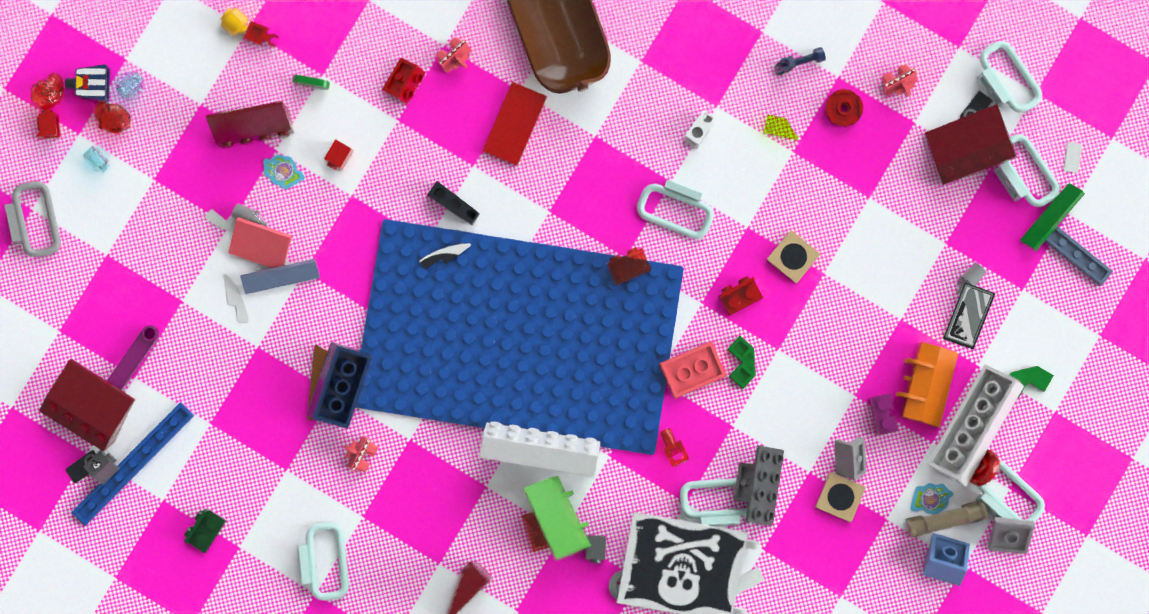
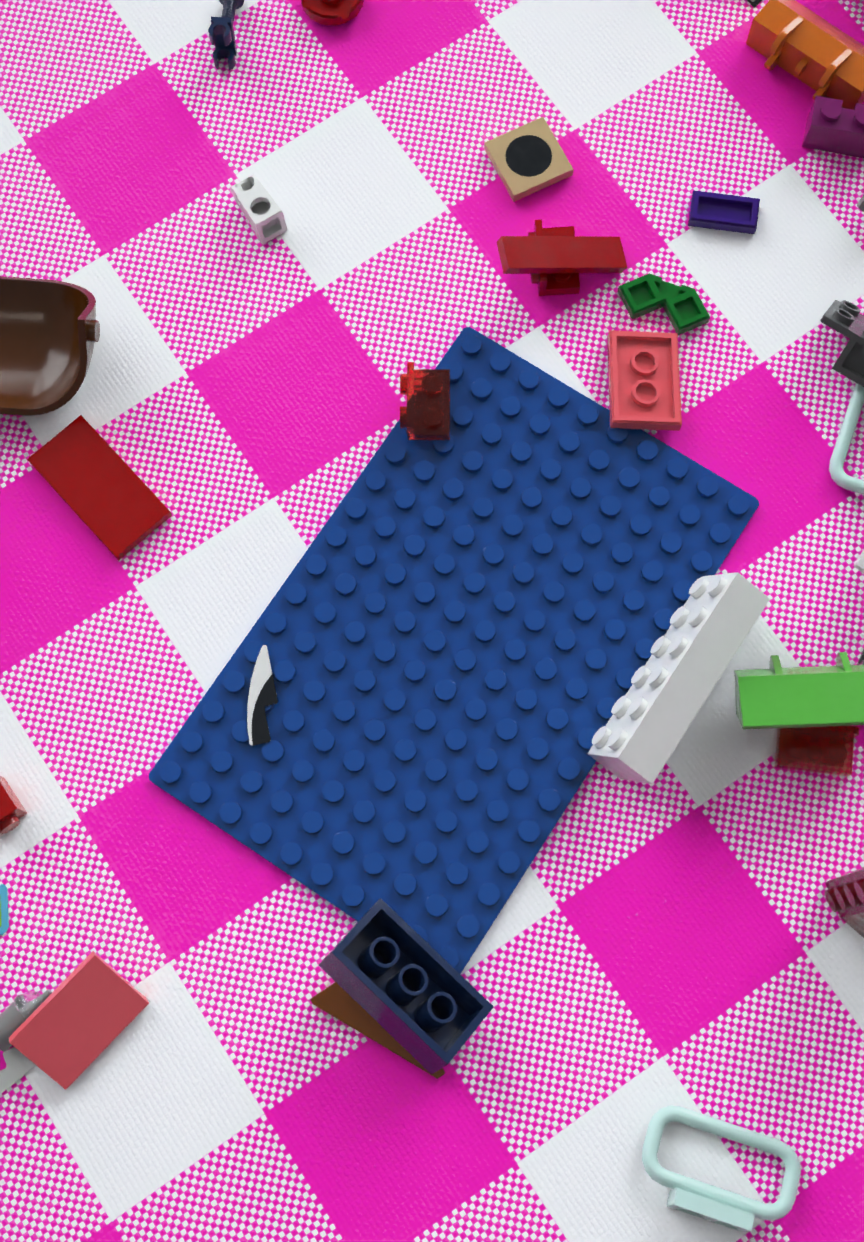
camera: 65 degrees left, 10 degrees down
(235, 298) = (154, 1115): white sticker -> none
(280, 276) = (155, 1011): sand blue tile -> none
(356, 461) = (542, 1010): coral hips -> none
(453, 203) = (179, 643): black leg -> none
(673, 447) = (764, 460): clear red bracket -> none
(682, 194) = (350, 271): light aqua bar -> none
(739, 299) = (561, 254): none -> red tile
(779, 127) = (315, 97): clear neon green tile -> none
(808, 372) = (723, 212): none -> dark purple tile

